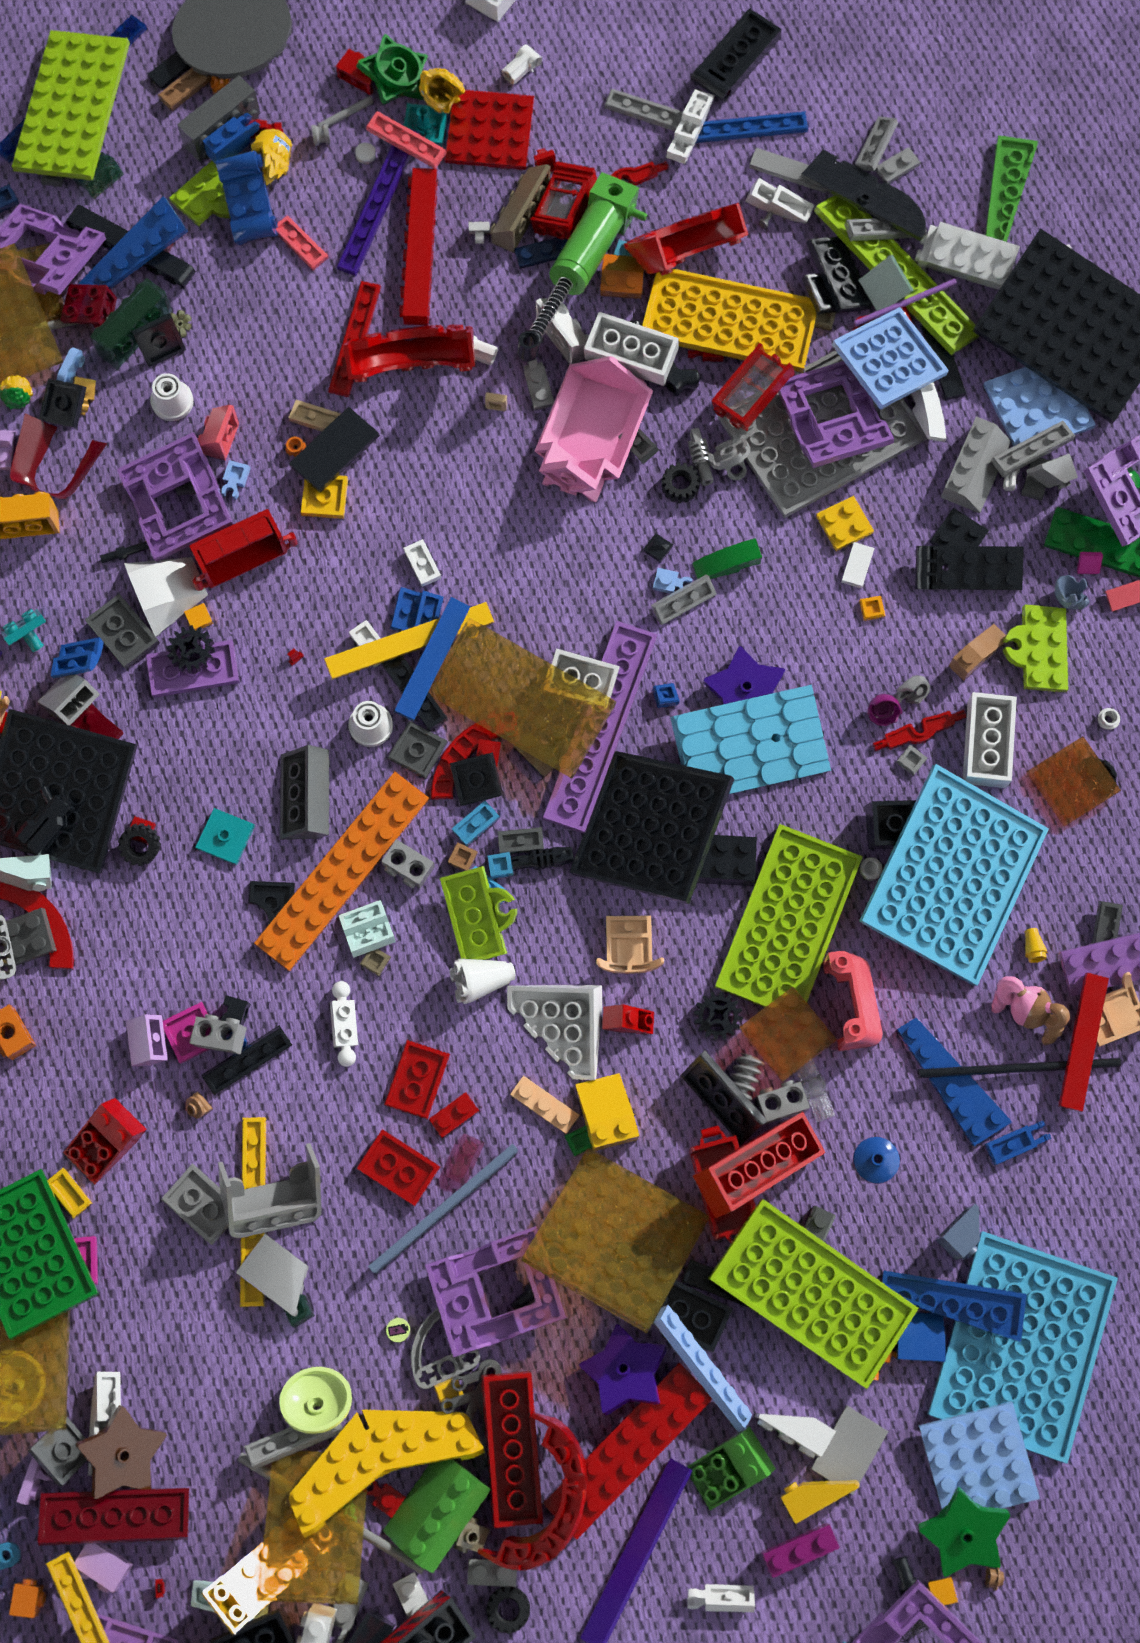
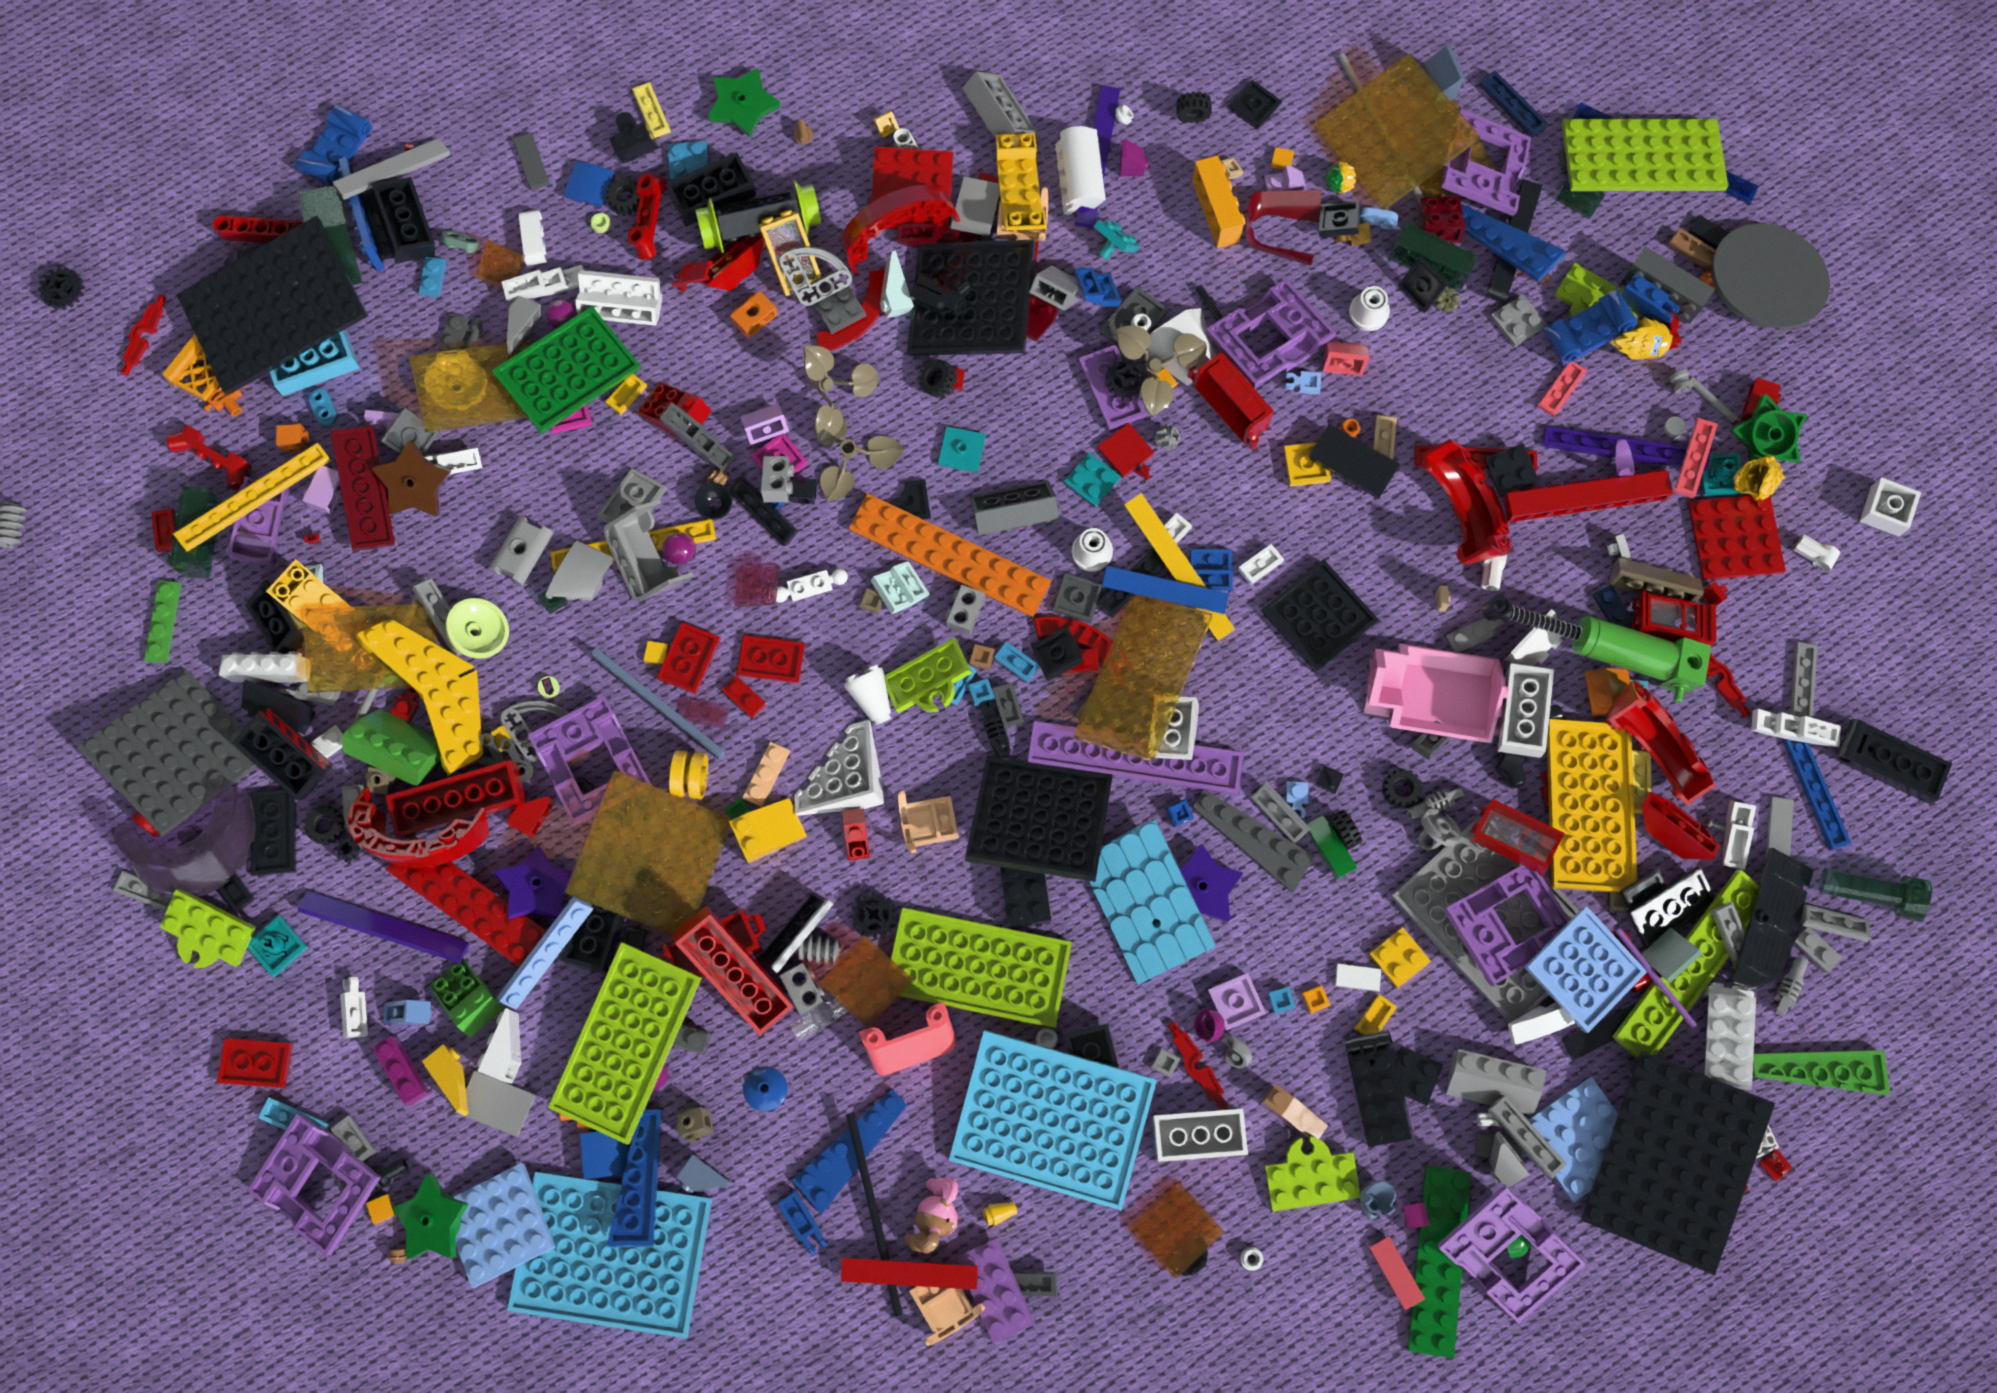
camera: 80 degrees right, 0 degrees up
(97, 962) = (816, 365): none -> dark tan plant
(128, 617) = (1141, 318): none -> white plate
(147, 1115) = (697, 437): none -> dark grey slope
(158, 631) = (1155, 393): none -> dark tan plant
(214, 1338) = (521, 536): none -> light grey piece
(217, 264) = (1518, 320): none -> light grey plate
(220, 1099) = (709, 492): none -> black piece
(229, 977) = (837, 482): none -> dark tan plant
(264, 624) = (1167, 437): none -> light grey gear
(266, 670) = (1125, 450): none -> red tile
(270, 1159) = (679, 548): none -> magenta hair
(291, 709) = (1092, 479): none -> teal plate
(332, 1079) = (757, 585): none -> clear pink plate
(376, 307) = (1511, 469): none -> black plate
(384, 1203) = (655, 652): none -> yellow tile
(392, 204) = (1623, 459): none -> medium lavender helmet
(488, 519) = (1319, 615): none -> black plate
(534, 1180) = (688, 774): none -> yellow wheel
(544, 1370) = (530, 816): none -> red slope
(547, 1589) = (353, 853): none -> black gear
(713, 269) = (1641, 778): none -> light yellow tile
(713, 540) = (1345, 829): none -> black tyre
(718, 618) = (1268, 849): none -> dark grey wing
(737, 1537) = (407, 1012): none -> medium blue slope
(768, 249) = (1677, 829): none -> red wedge
(863, 680) = (1237, 1001): none -> lavender plate
(863, 1613) = (353, 1136): none -> light grey plate
(866, 77) = (1908, 897): none -> piece
(869, 638) = (1281, 1000): none -> dark azure plate
(898, 558) = (1375, 1016): none -> yellow tile
(905, 1228) = (694, 1124): none -> dark tan brick
(928, 195) = (1790, 986): none -> light grey hinge
(1086, 248) = (1775, 1165): none -> red tile

